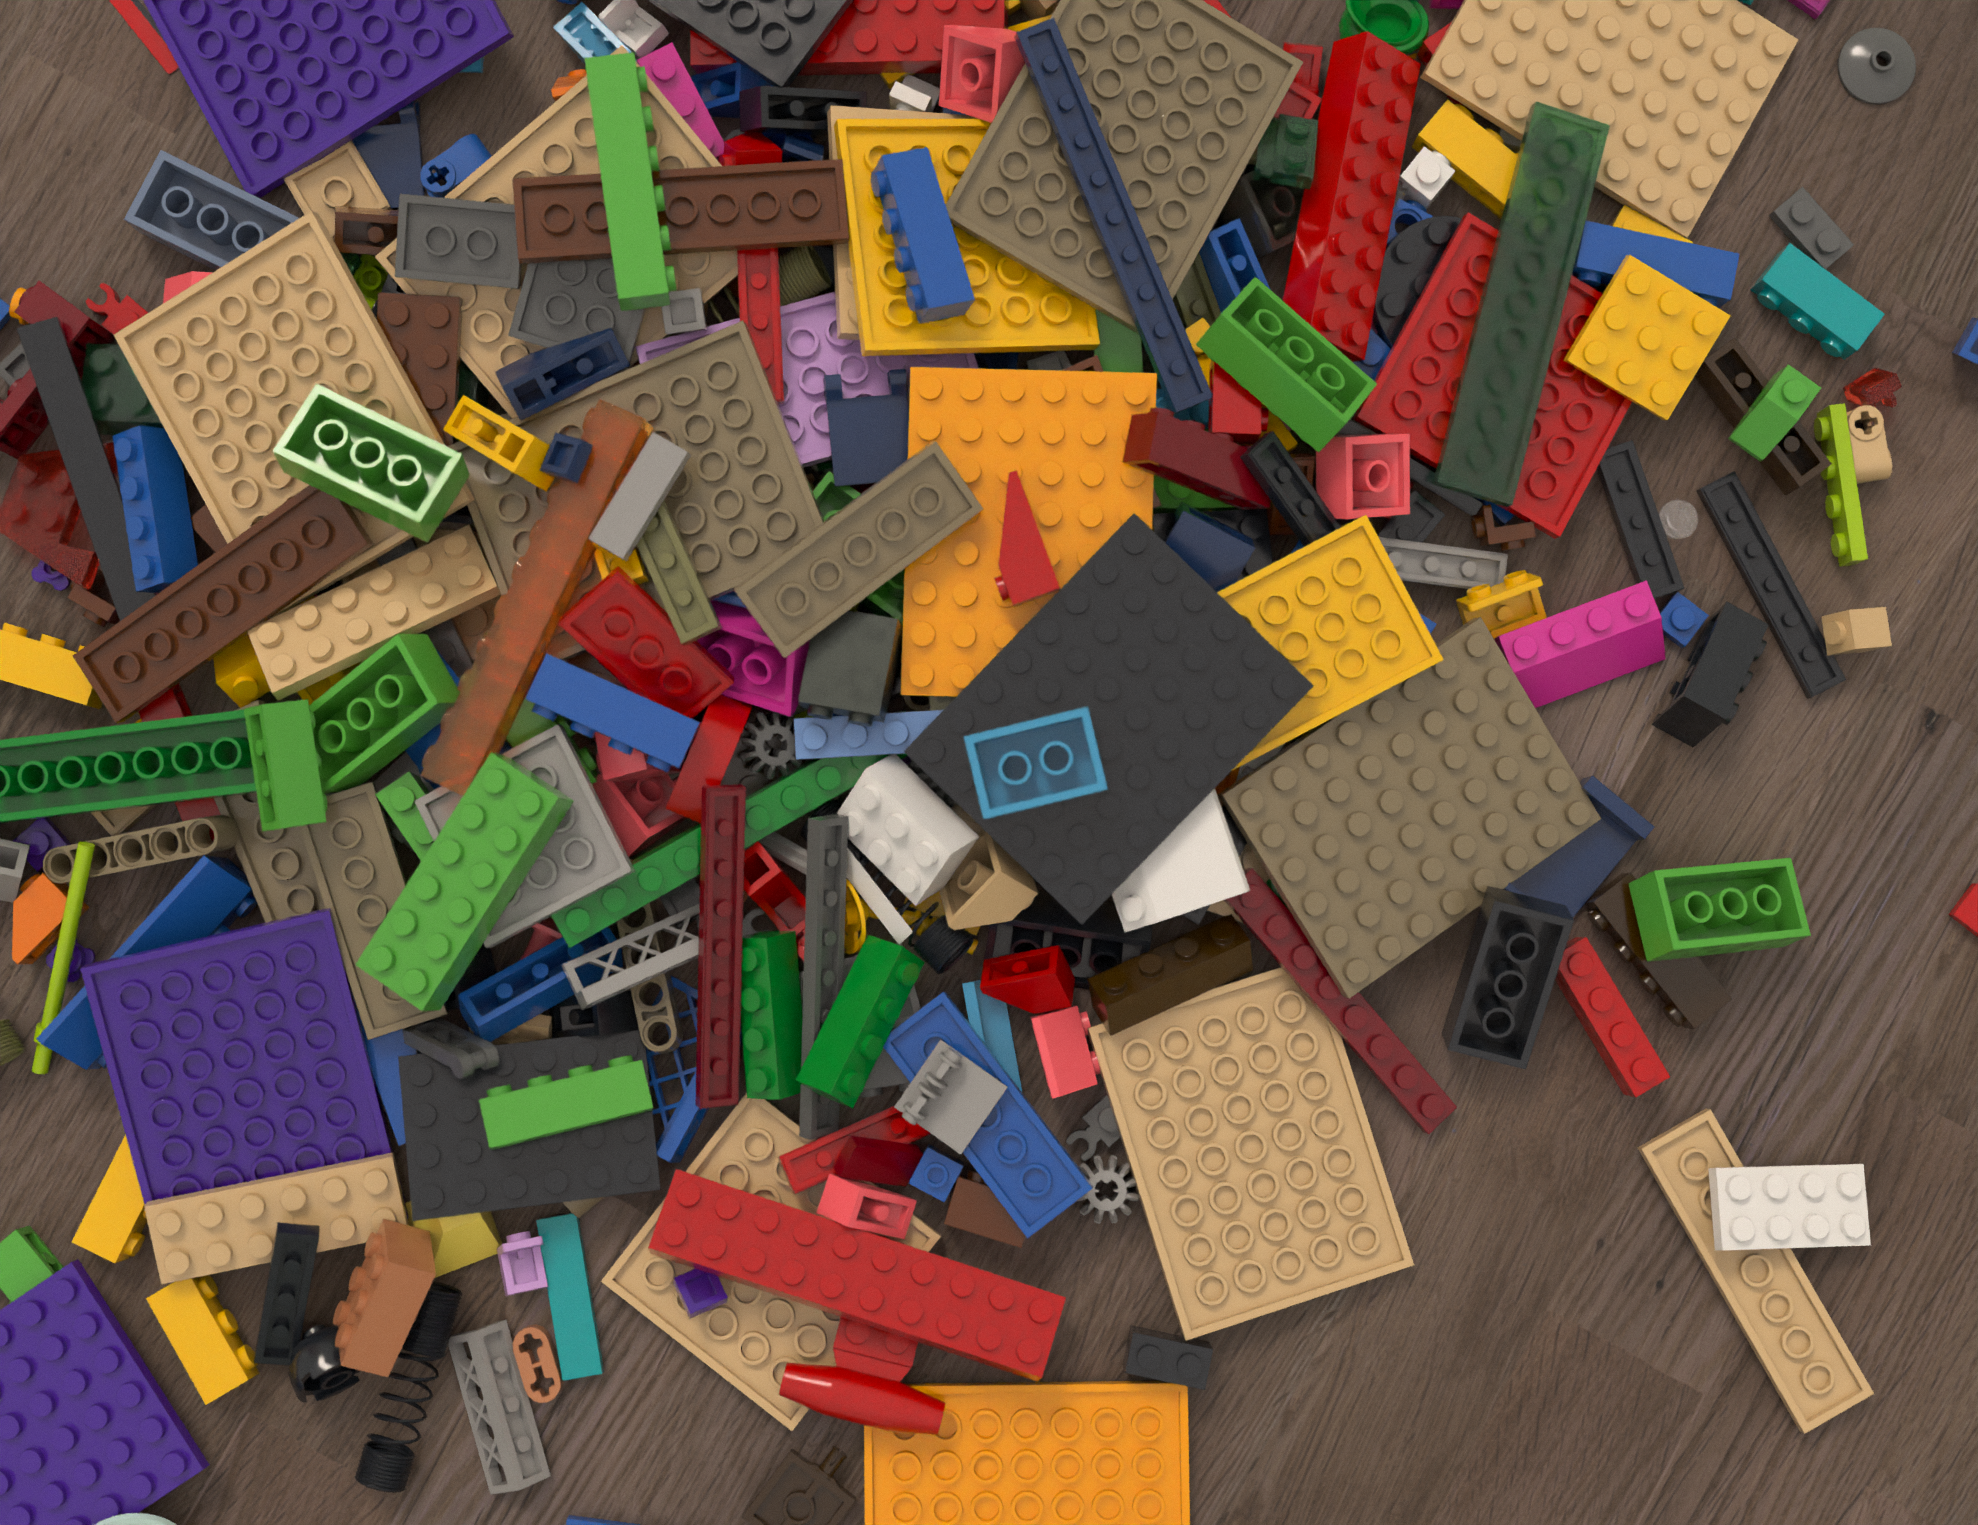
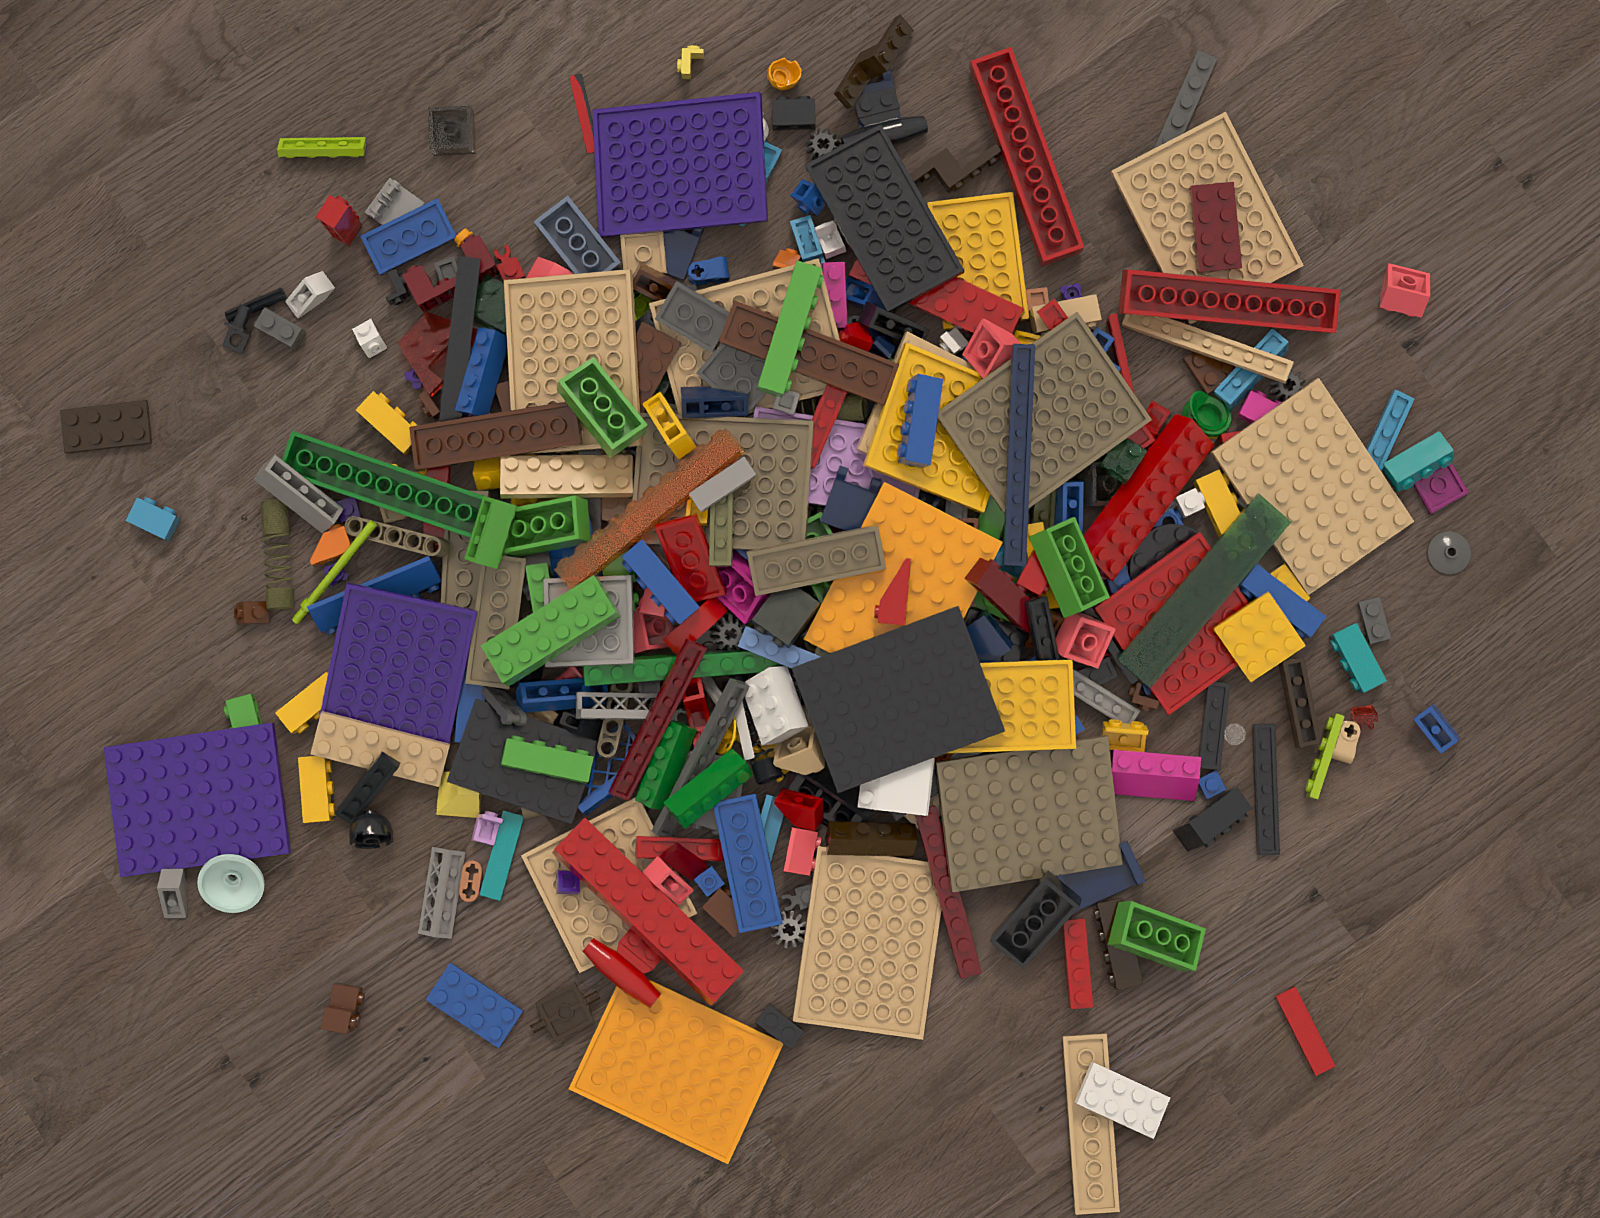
camera: 30 degrees right, 0 degrees up
(384, 1297) = (414, 812): nougat brick -> none
(387, 1461) = (425, 838): black piece -> none
(566, 457) = (696, 449): dark blue tile -> none
(950, 1097) = (734, 846): light grey hinge -> none
(1035, 762) = (852, 704): dark azure brick -> none
(1774, 412) = (1302, 704): bright green slope -> none
(1856, 631) = (1295, 832): tan brick -> none

